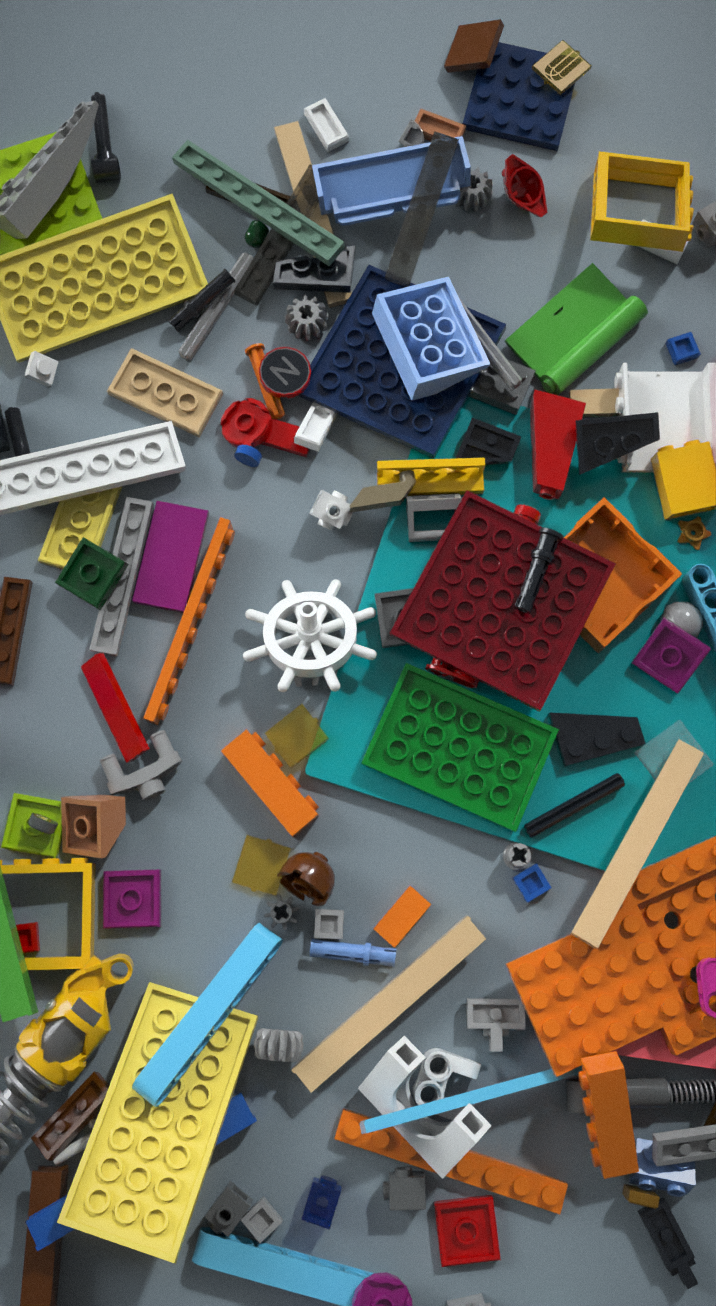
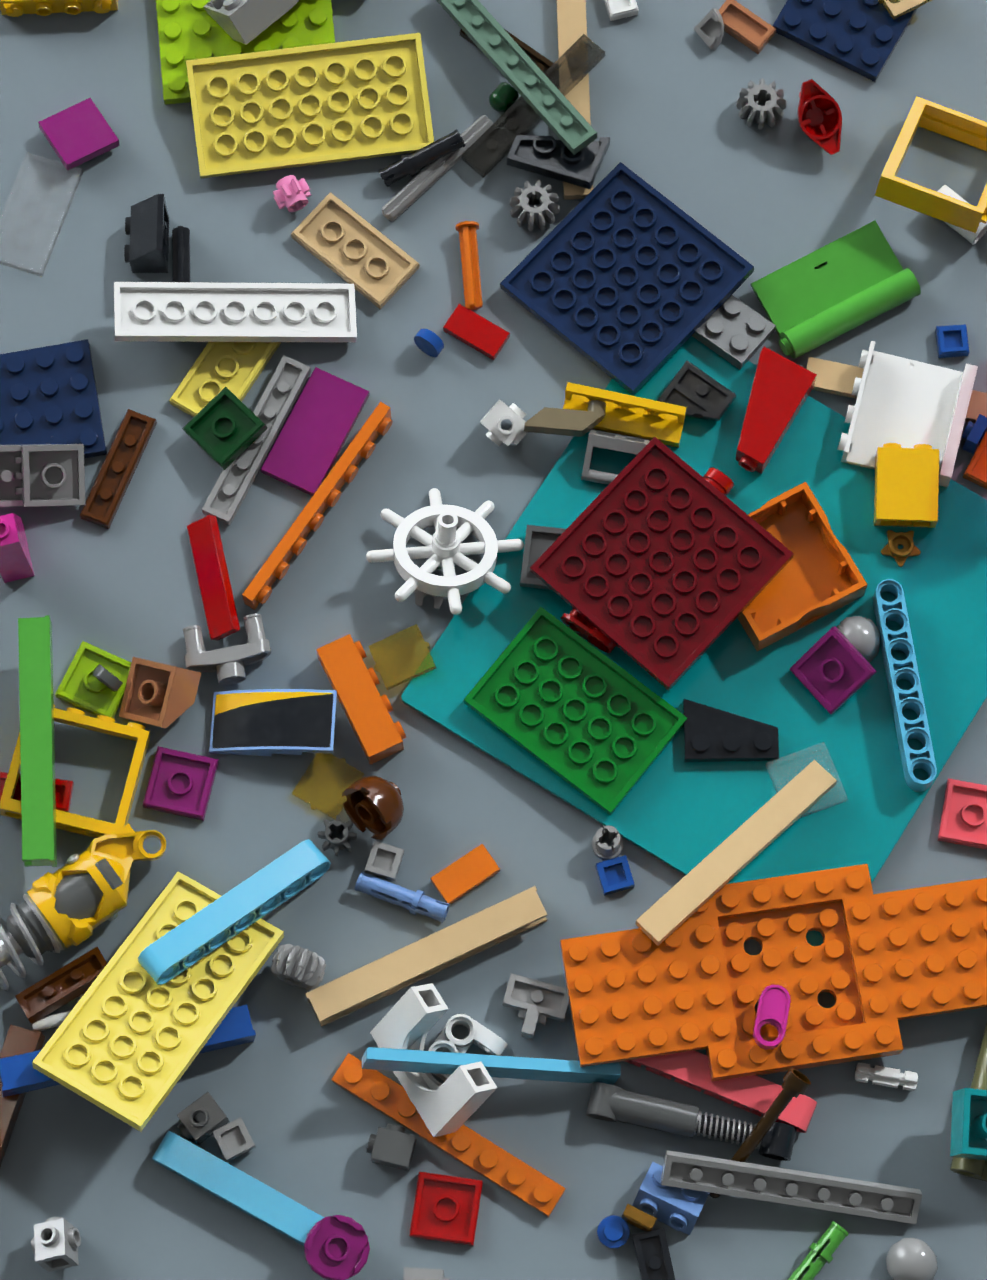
camera: 15 degrees right, 5 degrees down
(41, 369) = (225, 191): white plate -> none
(98, 356) = (291, 193): none -> bright pink gear
(199, 824) = (273, 722): none -> black slope
(246, 423) = (436, 306): red tile -> none
(284, 372) = (493, 261): black tile -> none
(315, 427) = (511, 329): white tile -> none
(318, 1214) = (302, 1148): clear blue brick -> none
(382, 183) = (670, 76): medium blue slope -> none
(421, 209) = (693, 116): clear smoke tile -> none
(429, 336) = (662, 260): light blue slope -> none
(494, 355) = (719, 274): light grey axle -> none
(541, 558) = (713, 527): black pin -> none
(574, 805) = (683, 803): black axle -> none
(609, 1115) = (625, 1118): orange brick -> none
(612, 437) = (833, 419): black wing -> none
(620, 1213) = (613, 1231): none -> blue plate

